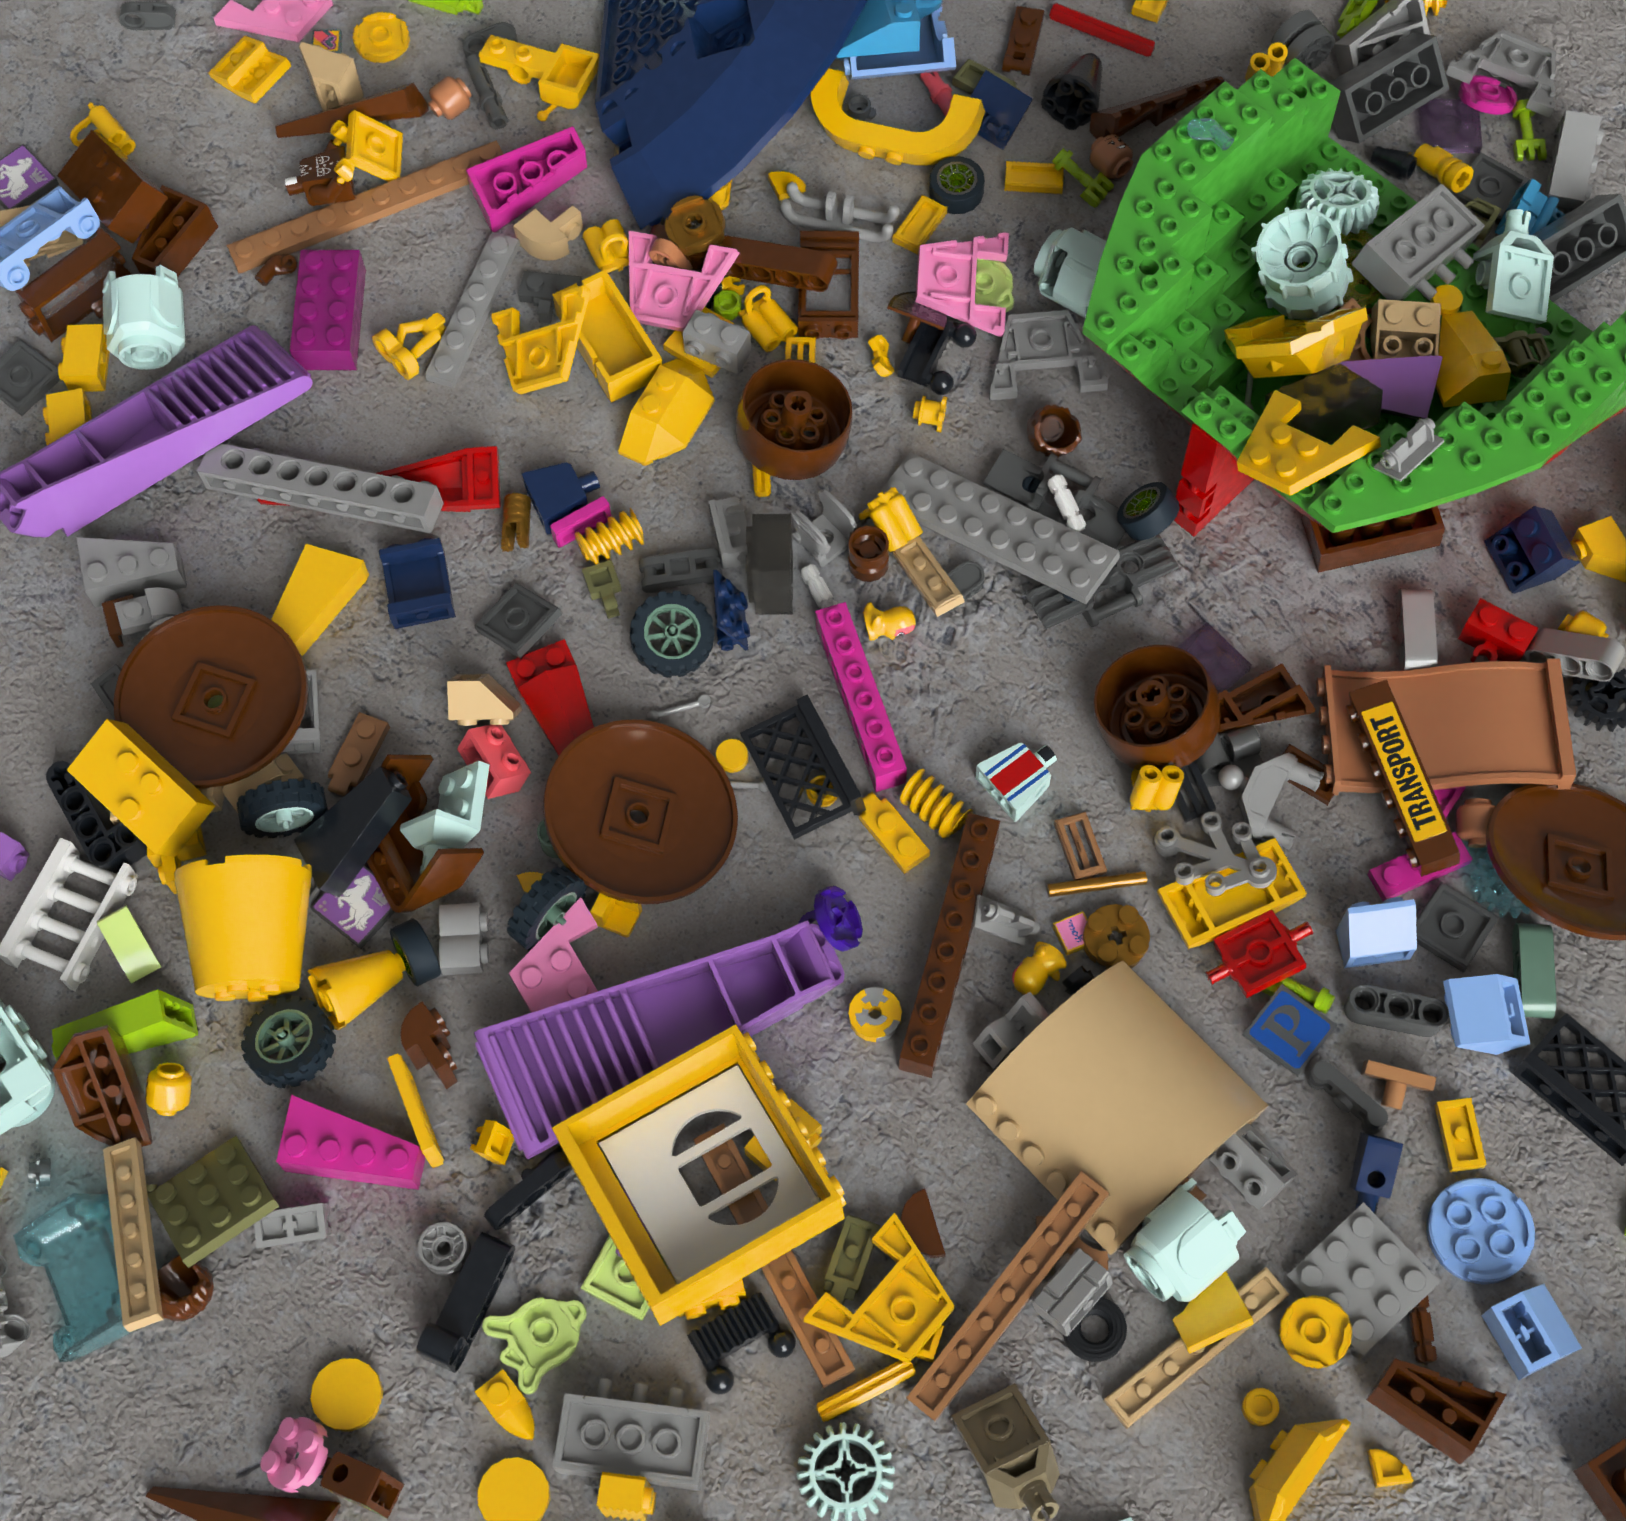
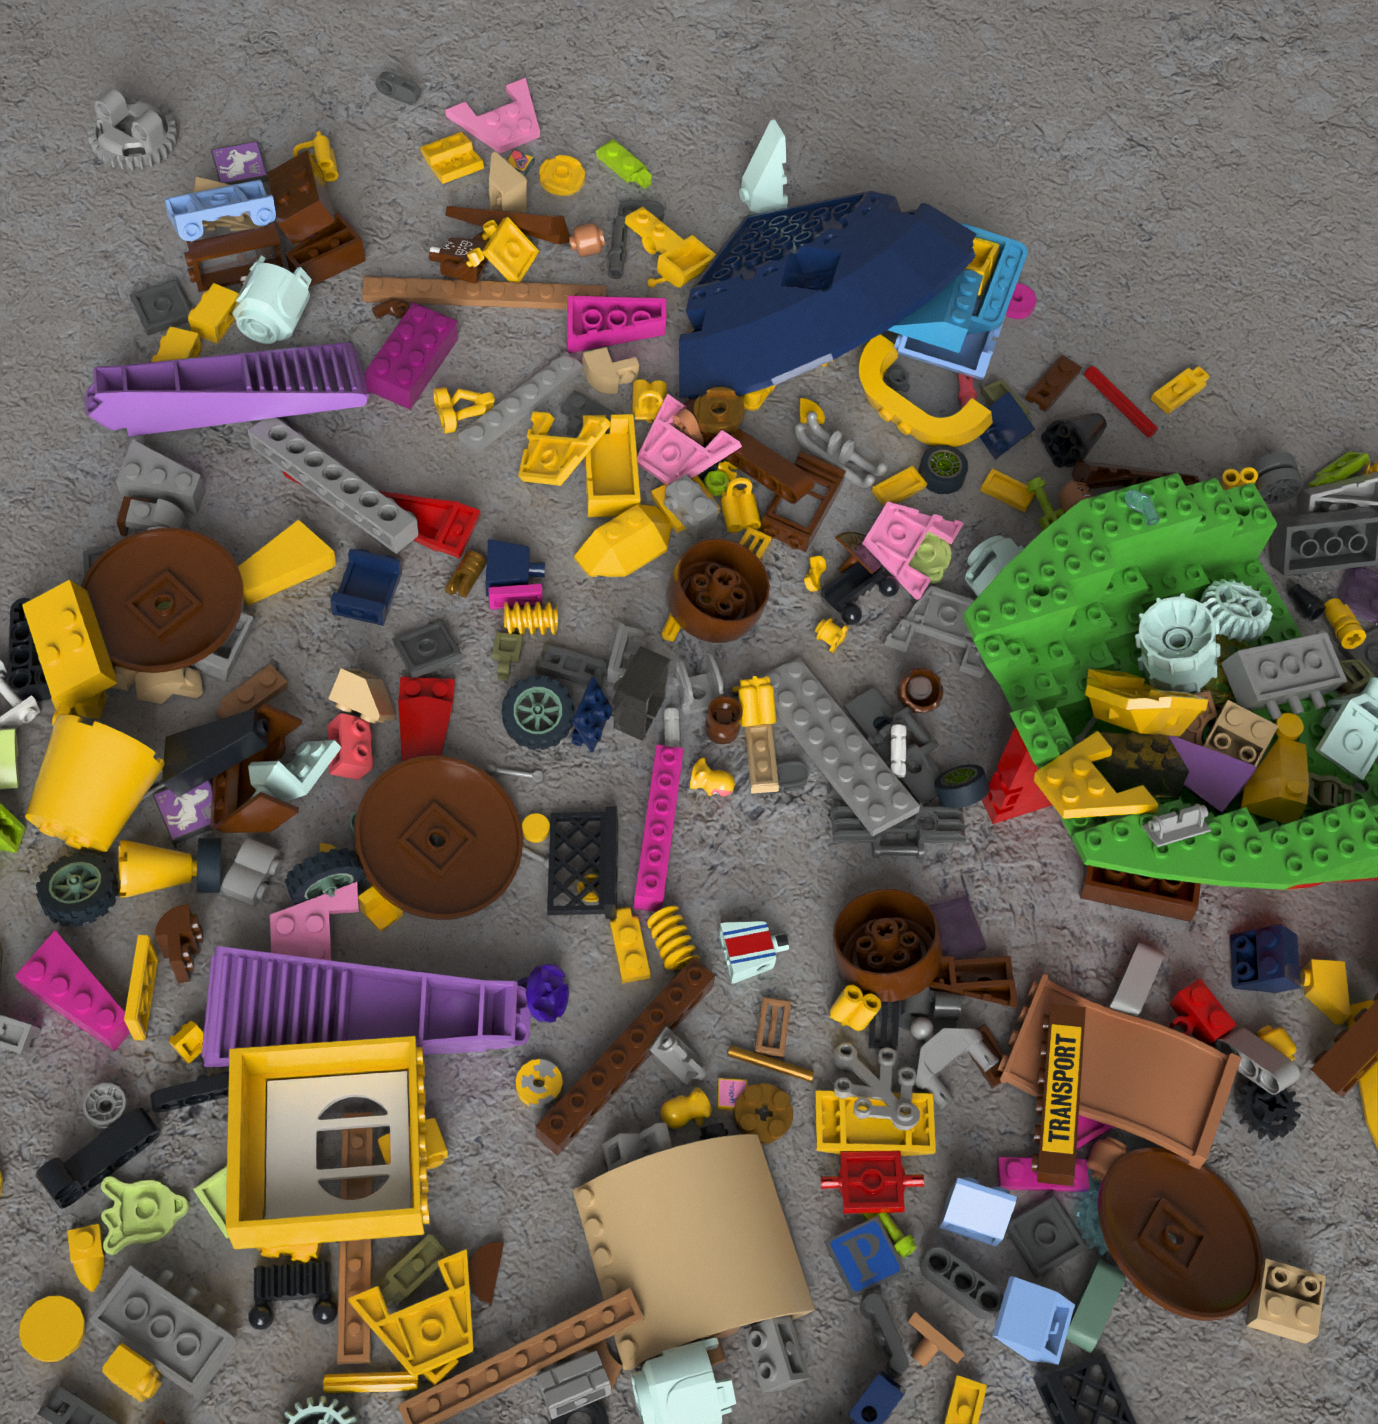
camera: 15 degrees right, 5 degrees down
(281, 808) = (168, 707): black wheel -> none

